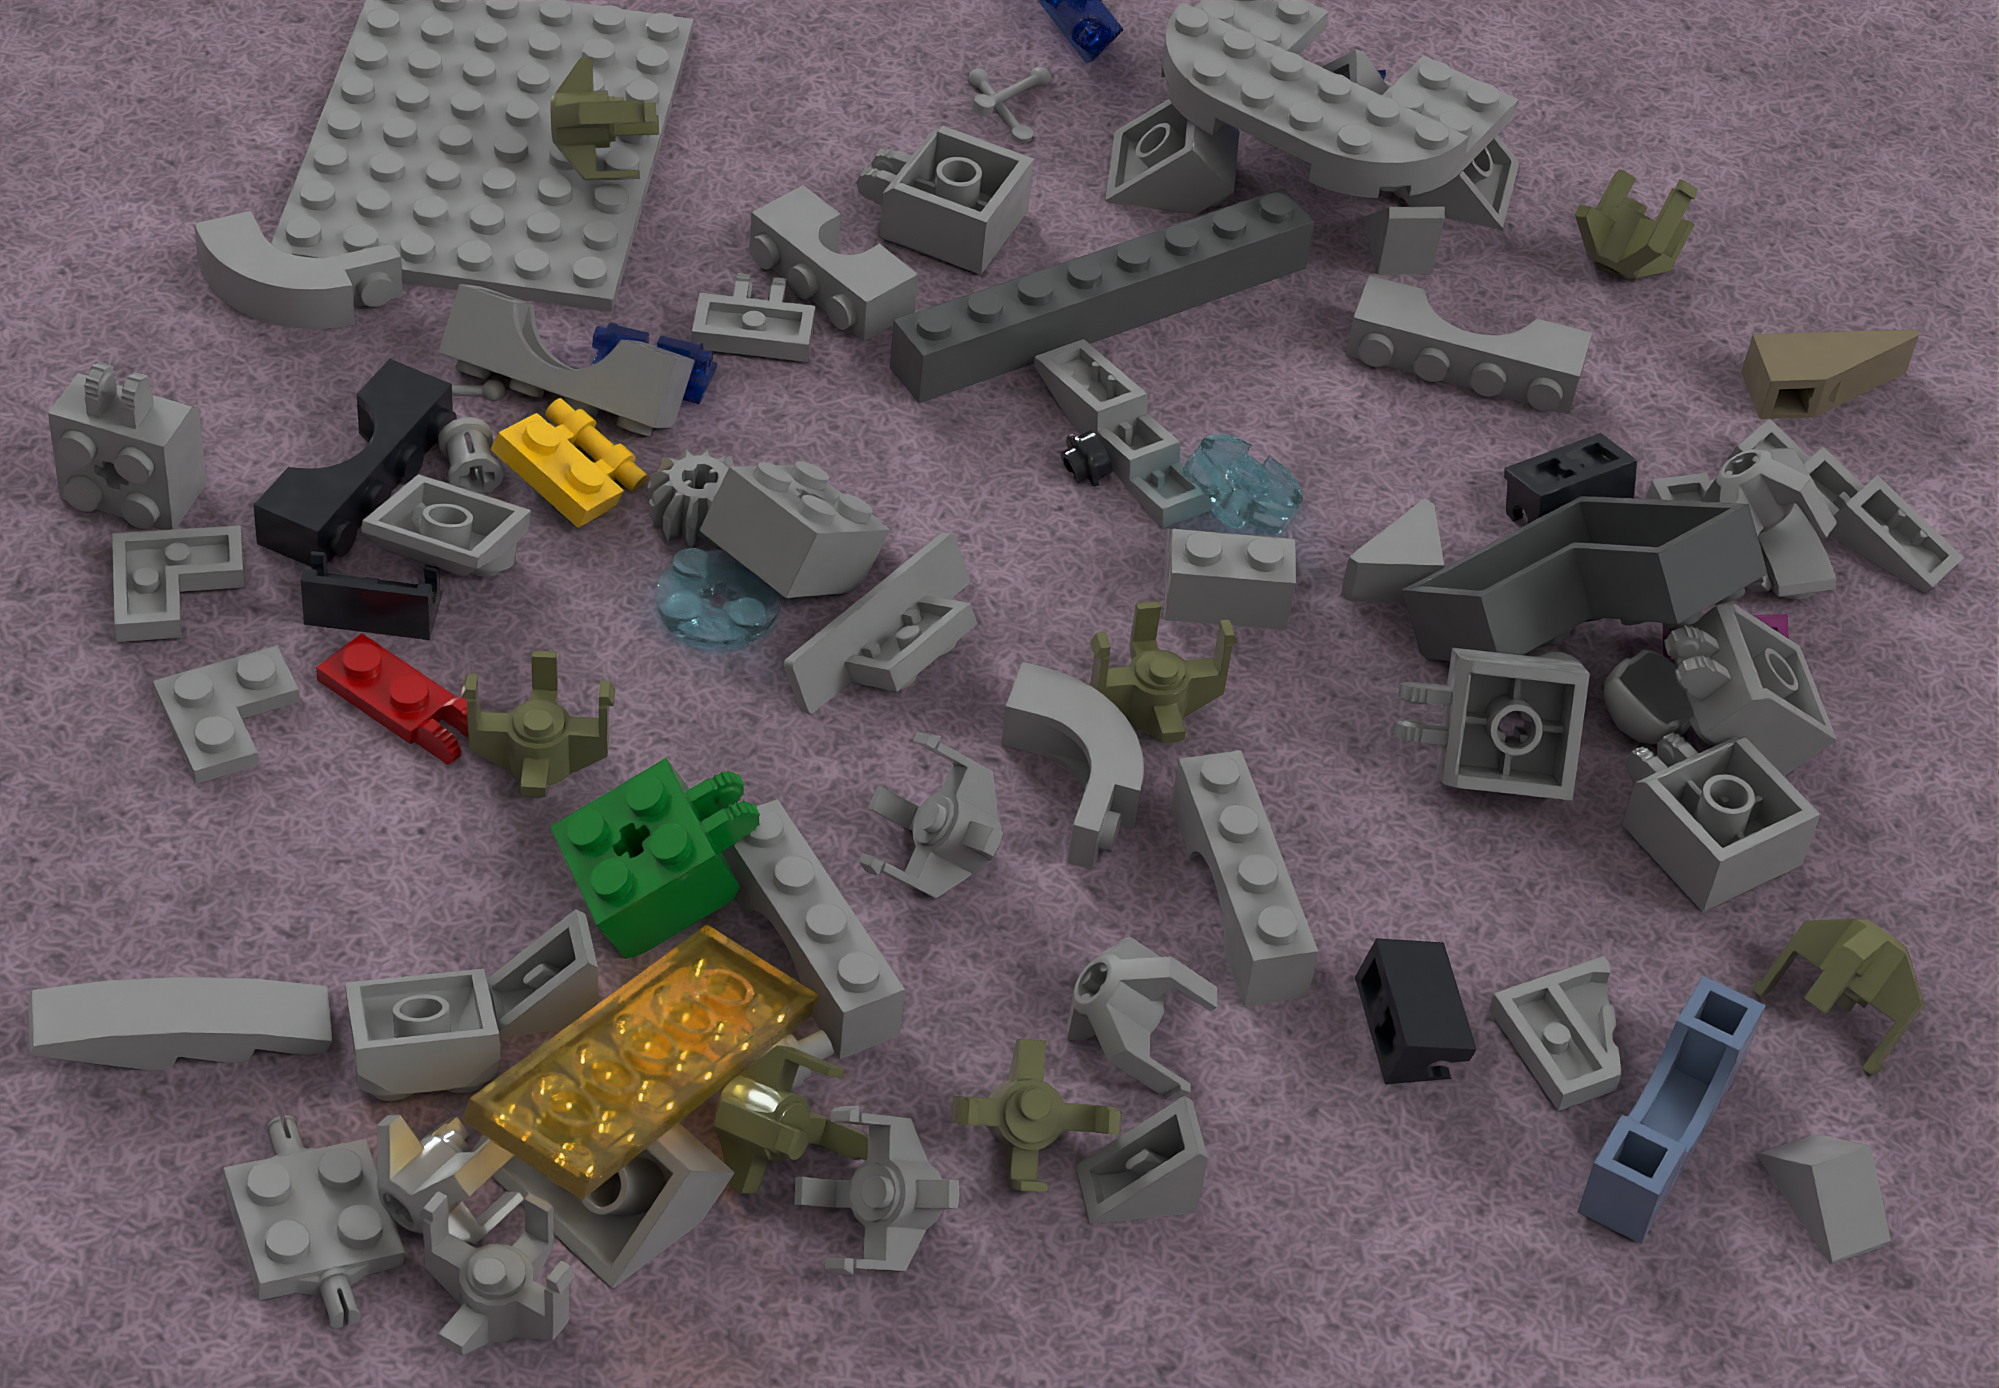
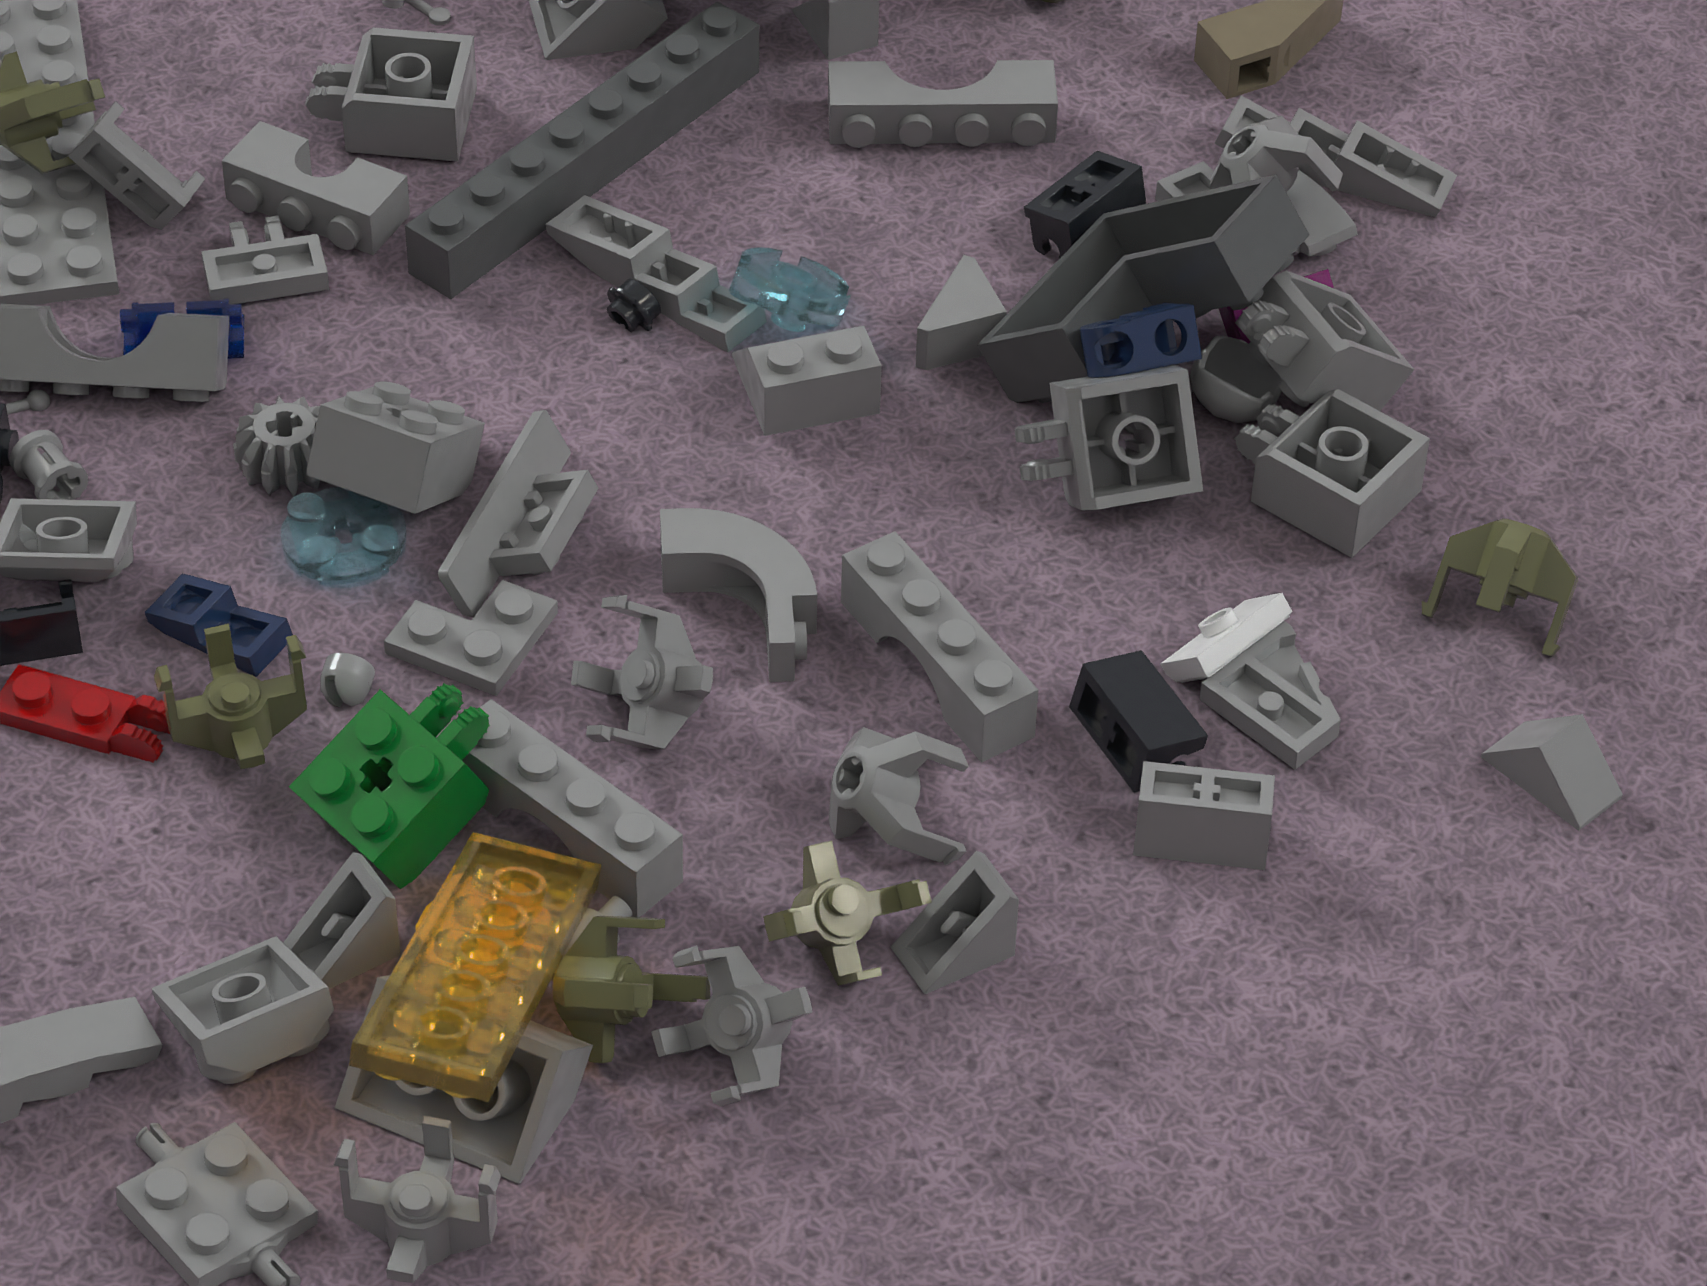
camera: 15 degrees left, 0 degrees up
(416, 1170) = (312, 1123): light grey piece -> none
(559, 471) = (131, 453): yellow plate -> none
(581, 661) = (200, 604): none -> dark blue slope
(659, 738) = (346, 679): none -> light grey hinge
(666, 199) = (132, 172): none -> light grey hinge
(798, 748) = (477, 650): none -> light grey plate
(1159, 684) = (789, 493): olive piece -> none
(1441, 1129) = (1204, 815): none -> light grey hinge
(1538, 954) = (1225, 637): none -> white plate
(1557, 632) = (1140, 341): none -> dark blue leg
(1673, 1111) = (1397, 736): sand blue arch -> none

